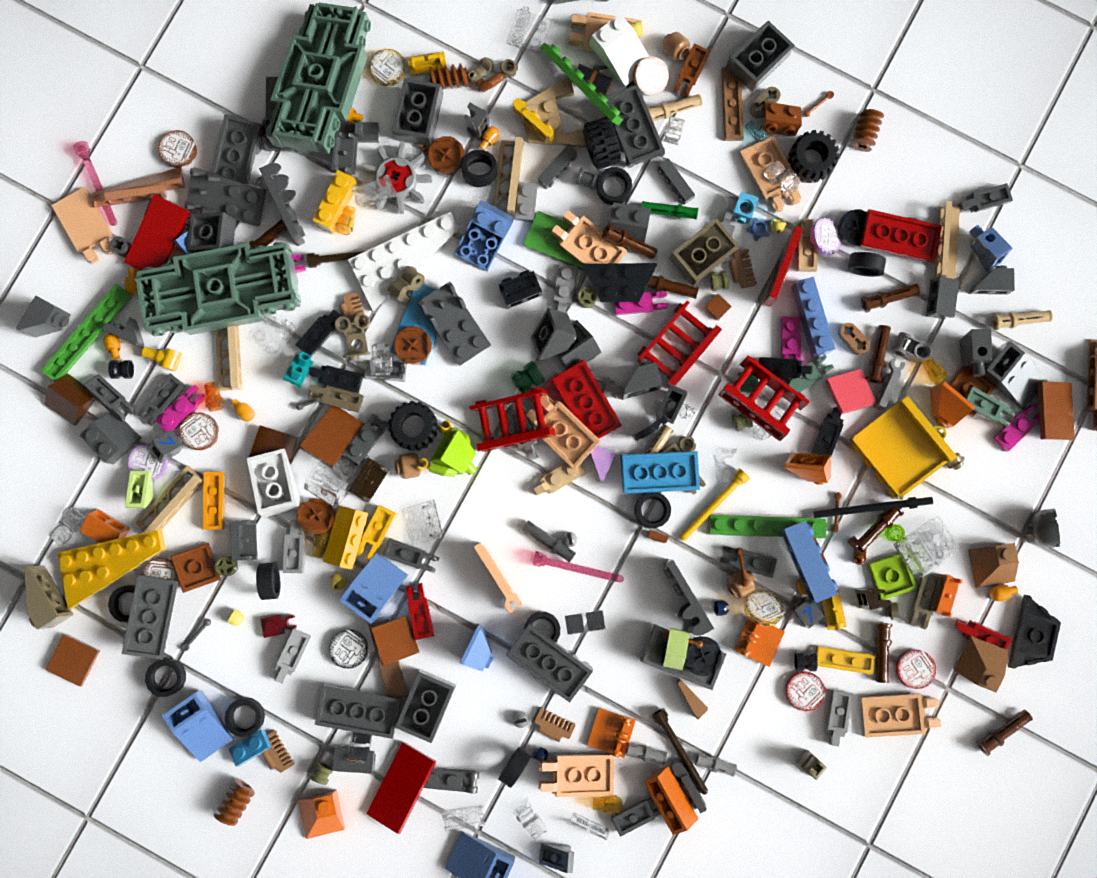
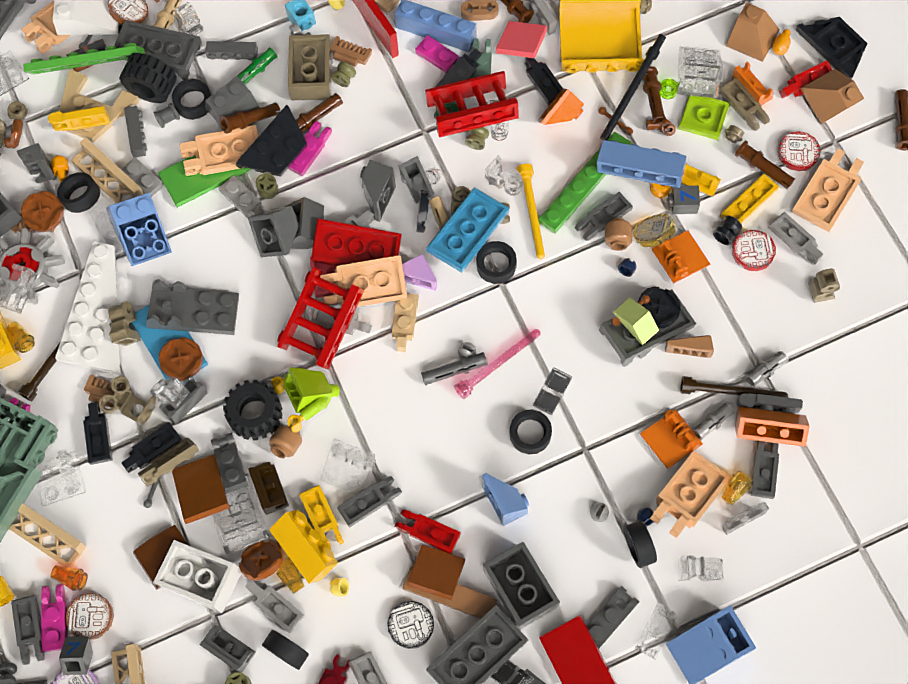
camera: 50 degrees left, 15 degrees down
(213, 500) = (166, 650): light orange plate -> none
(243, 410) = (106, 558): light orange cylinder -> none
(298, 369) = (113, 475): teal hips -> none
(373, 588) = (372, 556): medium blue slope -> none
(498, 577) = (451, 431): light nougat tile -> none
(520, 289) = (211, 234): black hinge -> none
(529, 376) = (293, 280): clear green wheel -> none
(550, 662) = (565, 441): dark grey hinge -> none
(553, 730) = (629, 490): medium nougat piece -> none
(557, 857) = (754, 568): dark grey slope -> none
(657, 536) = (523, 273): dark orange tile -> none
(692, 609) = (596, 281): dark grey hinge -> none
(697, 347) = (385, 129): red fence -> none
(717, 307) = (365, 92): dark orange tile -> none
(744, 582) = (619, 225): dark orange hinge -> none
(763, 225) = (327, 13): medium blue plate -> none
(869, 599) = (710, 139): dark brown hinge -> none

